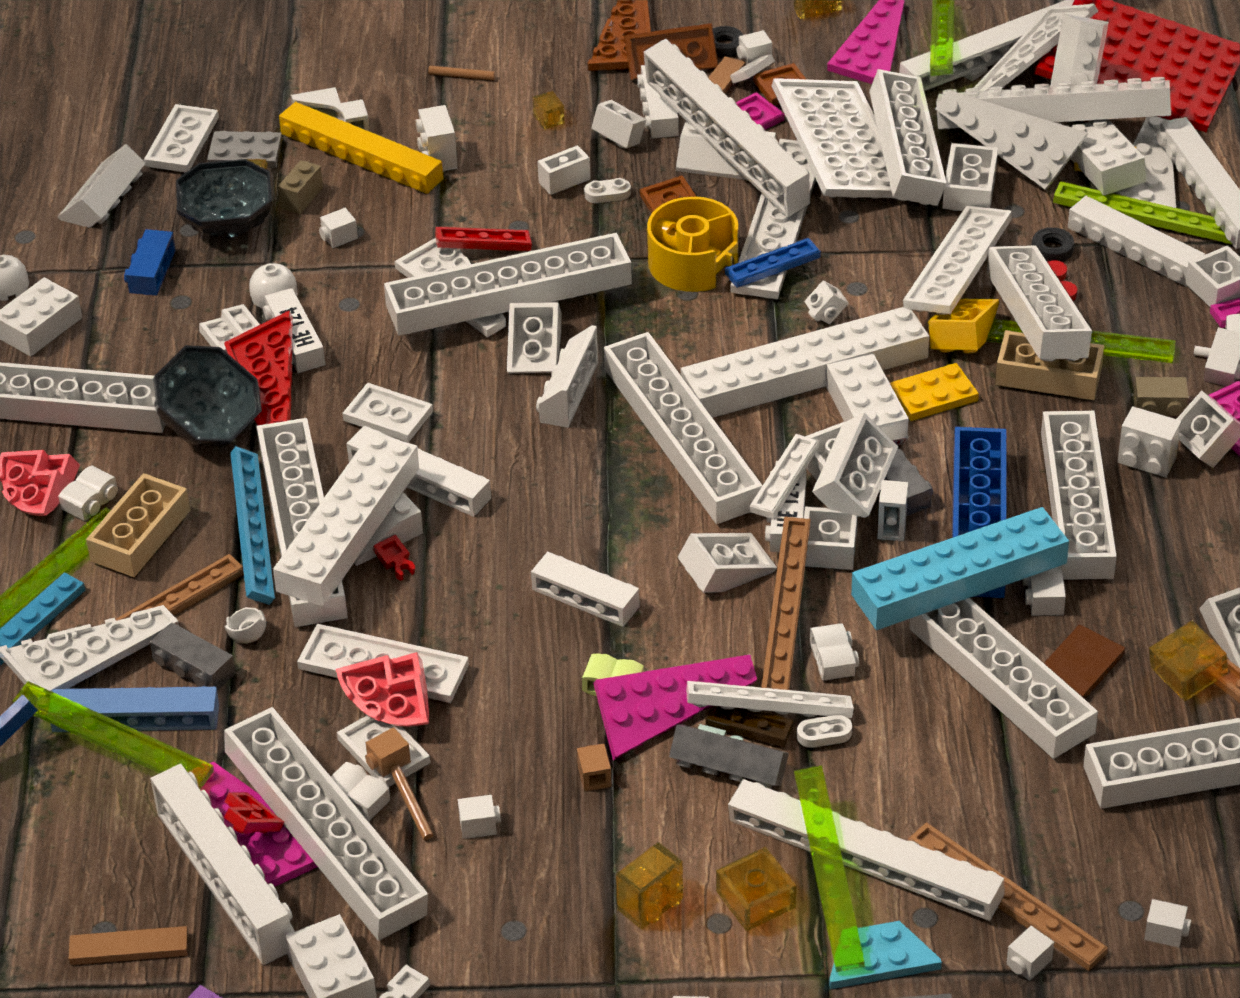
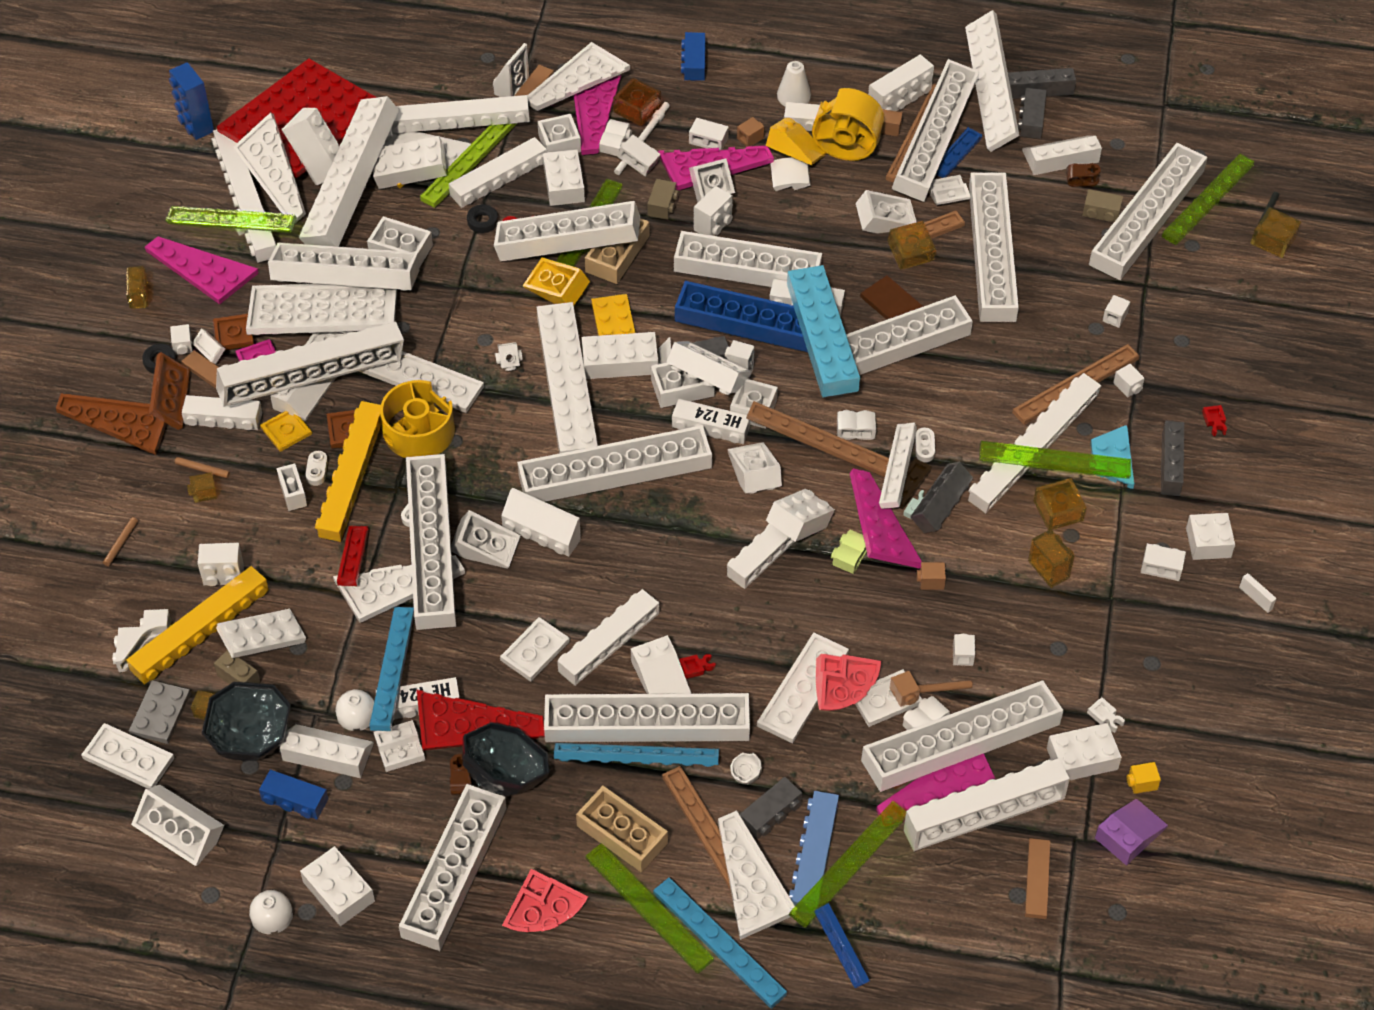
camera: 80 degrees left, 10 degrees up
(88, 493) = (568, 864): white brick -> none
(215, 273) = (326, 750): none -> white slope
(250, 815) = (952, 774): red plate -> none
(307, 294) = (392, 669): none -> dark azure plate
(338, 228) = (299, 653): white brick -> none
(346, 519) = (678, 675): white brick -> none
(353, 188) = (260, 633): none -> white plate
(581, 105) = (202, 467): none -> medium nougat bar
(590, 208) = (350, 472): none -> yellow brick
(618, 124) = (247, 442): white brick -> none
(644, 604) = (800, 515): none -> white brick
(654, 157) = (285, 430): none -> yellow tile
(772, 262) = (453, 377): blue tile -> none
(784, 476) = (696, 411): white tile -> none
(957, 260) = (492, 269): white plate -> none
(1024, 141) = (385, 196): white wing -> none
(1153, 298) = (563, 177): none -> white brick

